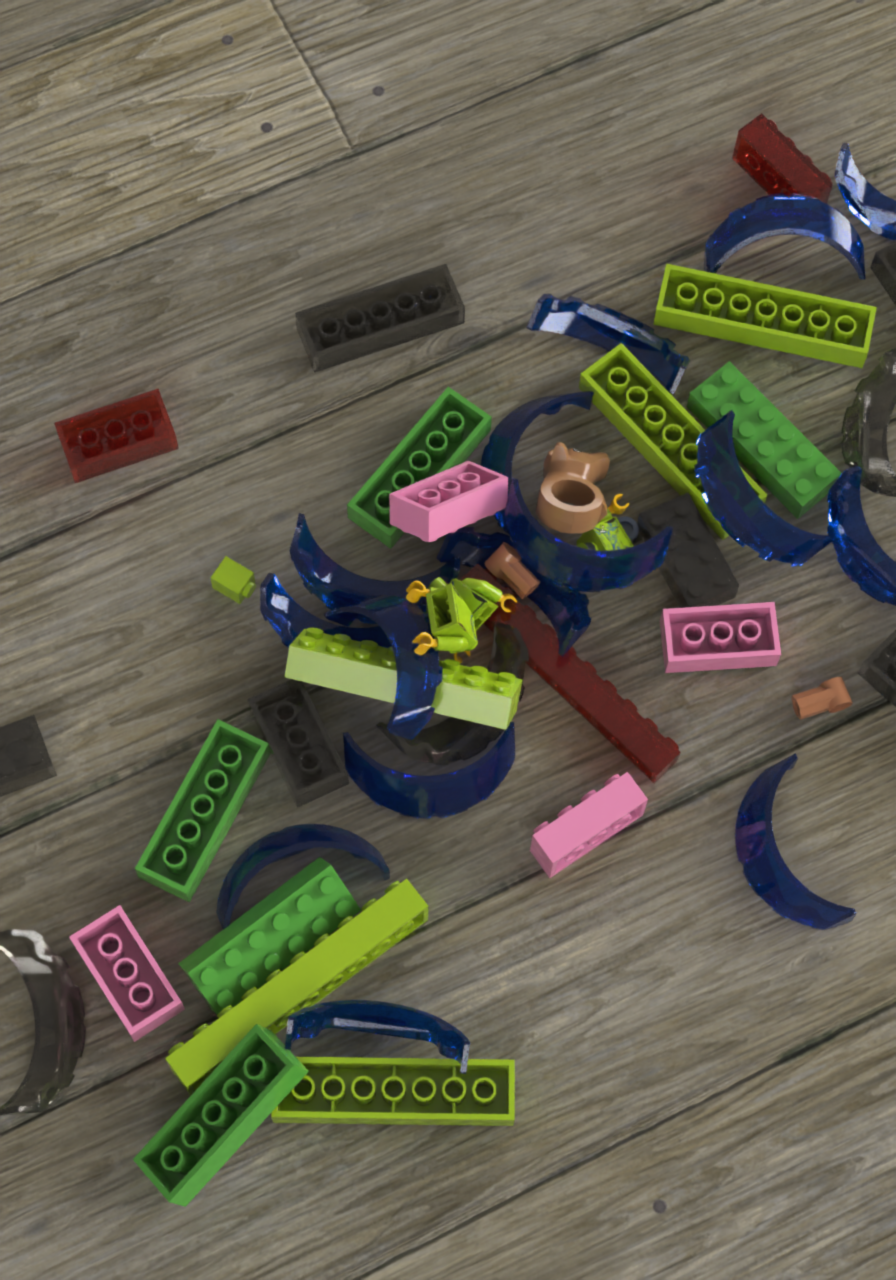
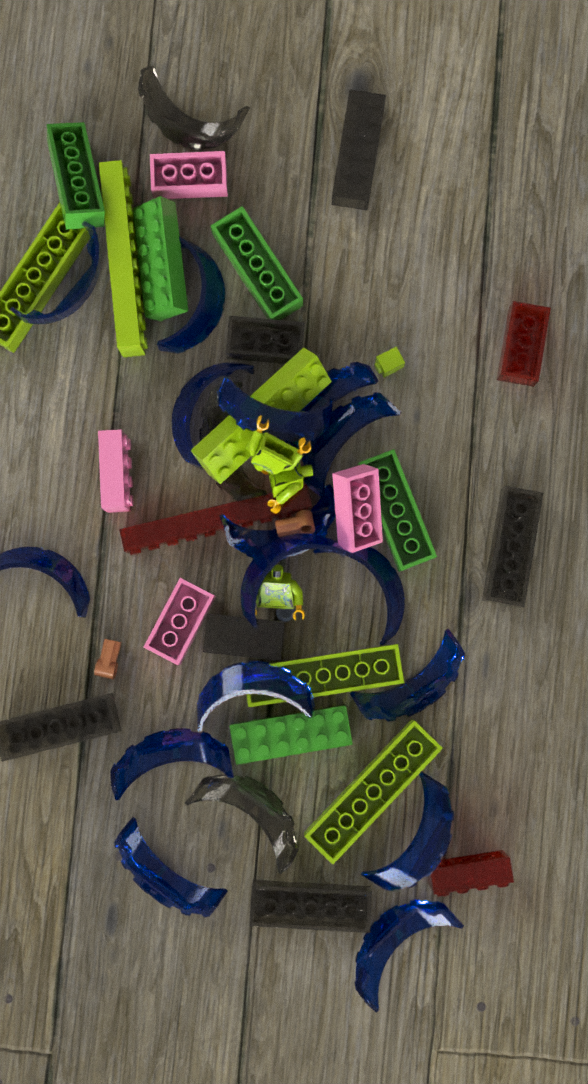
camera: 125 degrees right, 15 degrees up
(571, 479) = (333, 594): medium nougat animal -> none

